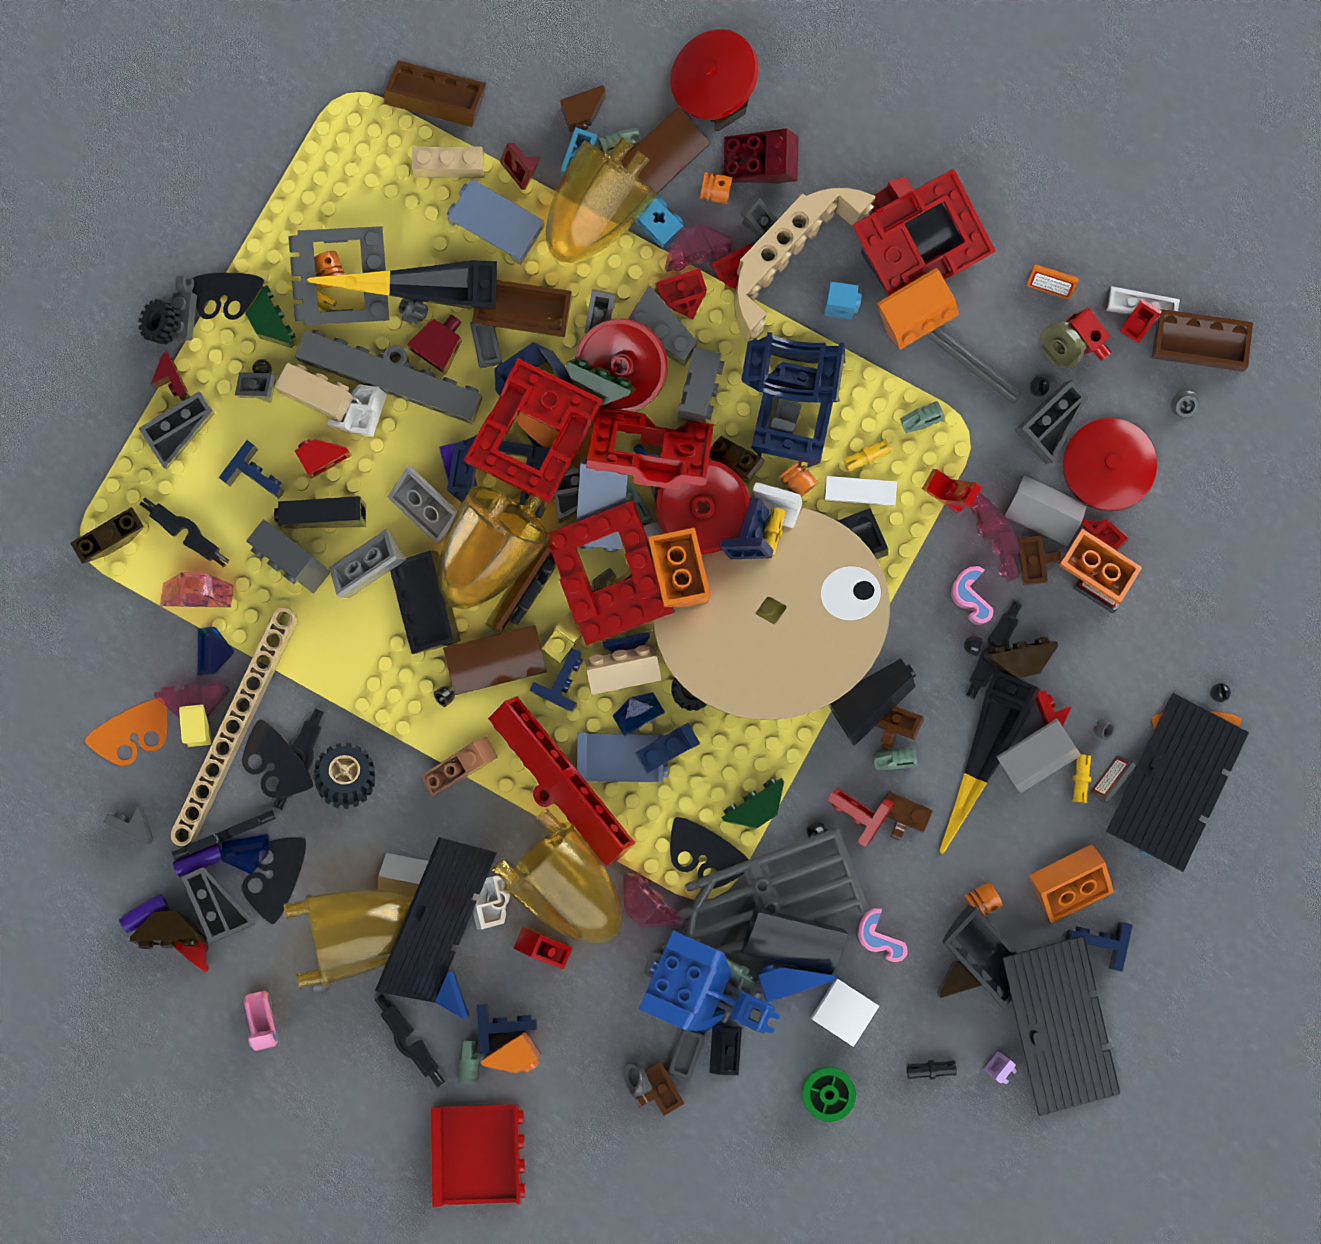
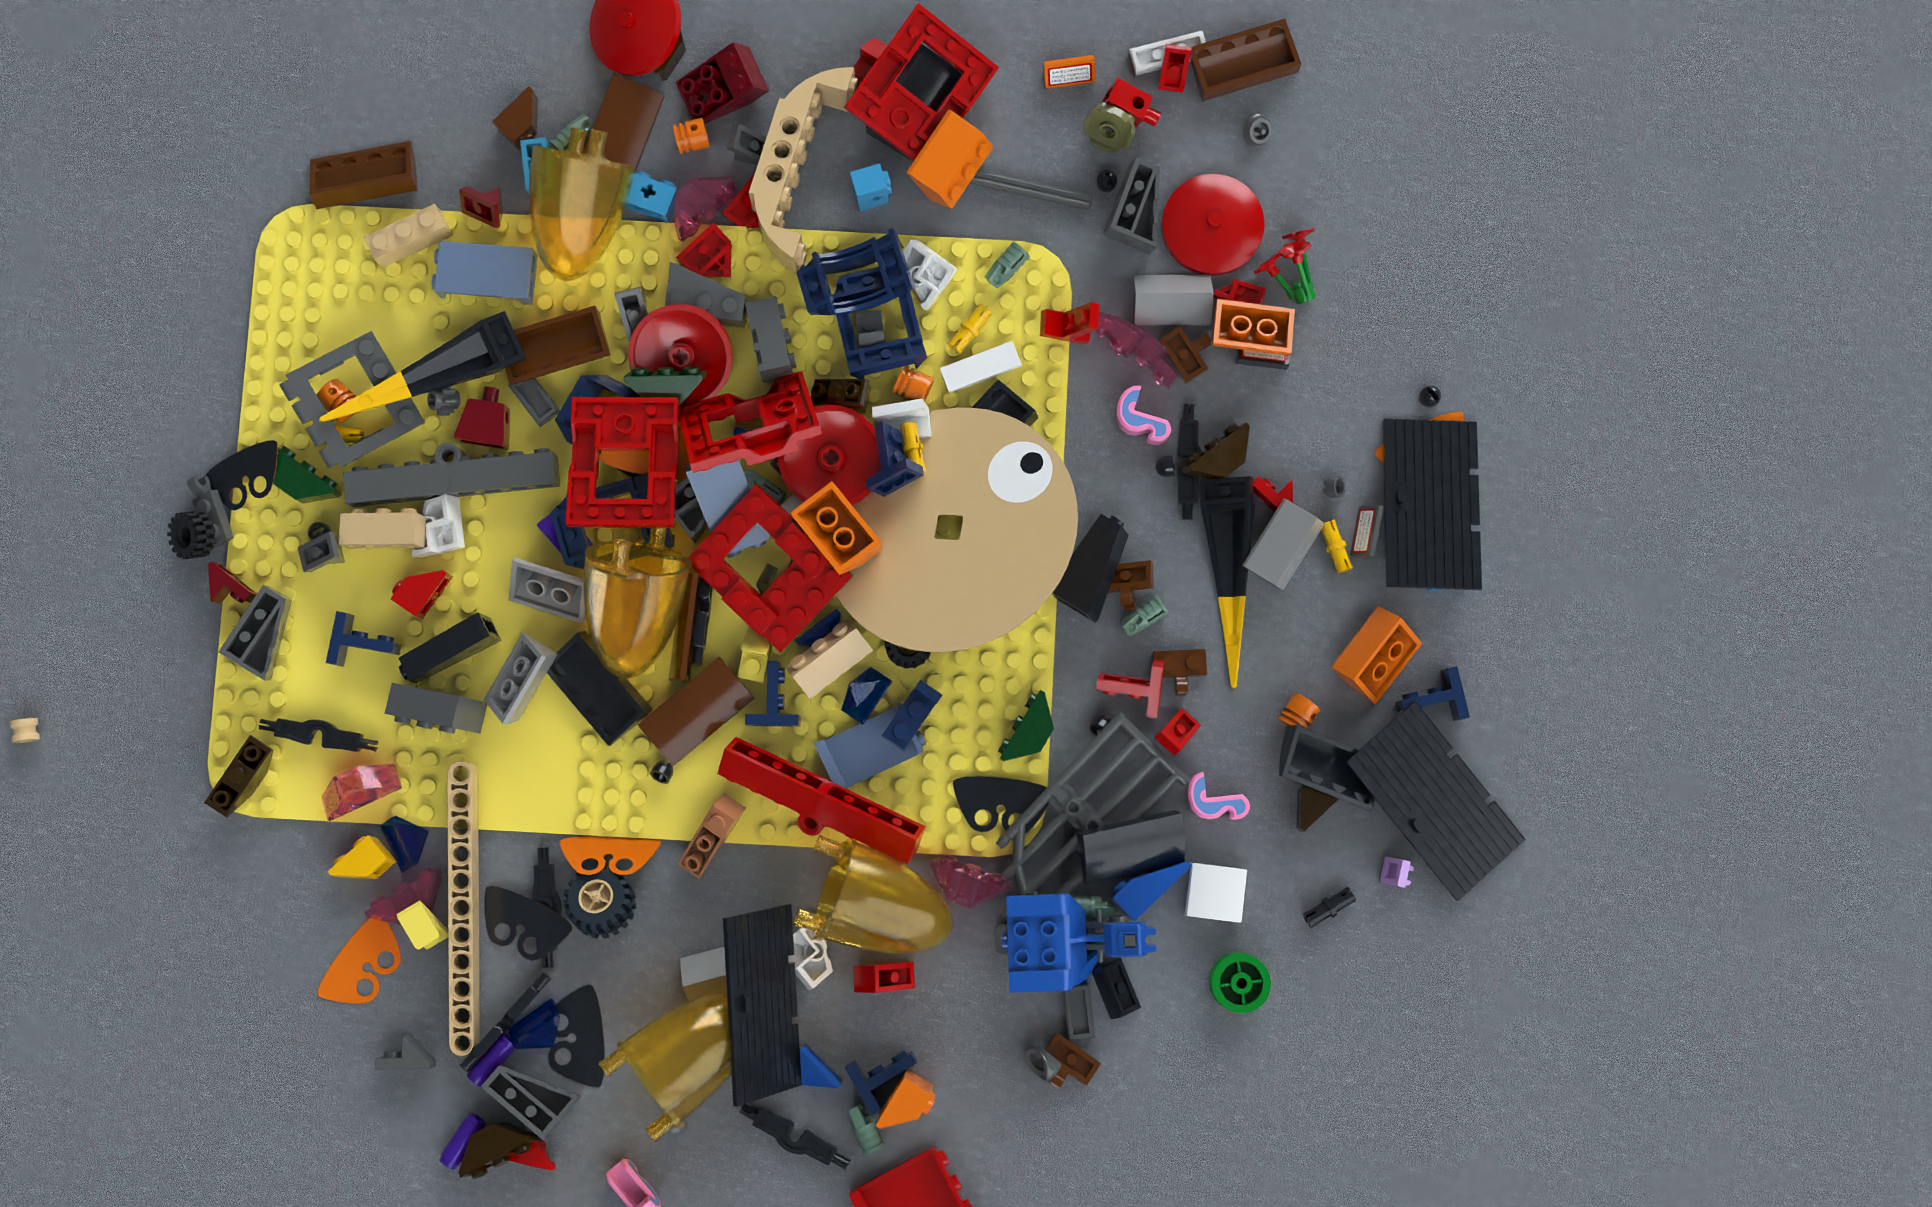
camera: 25 degrees left, 0 degrees up
(172, 651) = (365, 861): none -> yellow slope
(356, 727) = (596, 847): none -> orange piece
(855, 392) = (928, 272): none -> white slope
(877, 866) = (1177, 731): none -> red slope
(1158, 553) = (1302, 289): none -> plant

